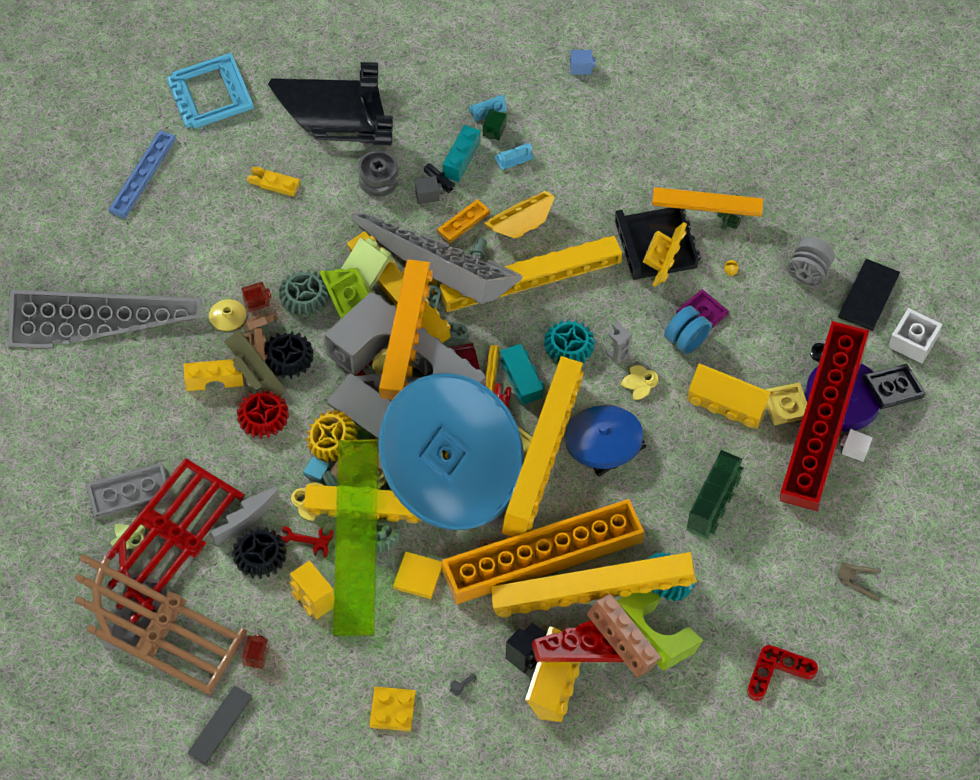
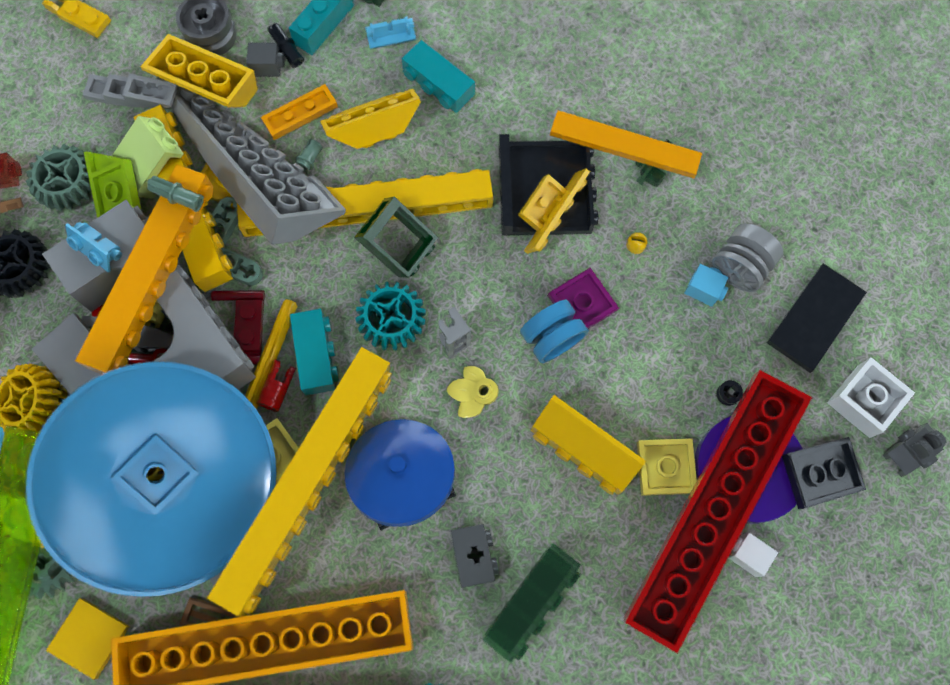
camera: 10 degrees right, 15 degrees up
(334, 228) = (130, 91): none -> light grey slope
(361, 323) = (84, 239): none -> medium azure hinge
(388, 203) = (202, 72): none -> yellow slope
(415, 275) = (175, 193): none -> sand green axle
(559, 180) = (438, 76): none -> teal brick
(580, 287) = (376, 222): none -> dark green window
(668, 479) = (463, 542): none -> dark grey brick
(787, 286) = (707, 285): none -> medium azure brick
(952, 361) = (916, 449): none -> dark grey hinge

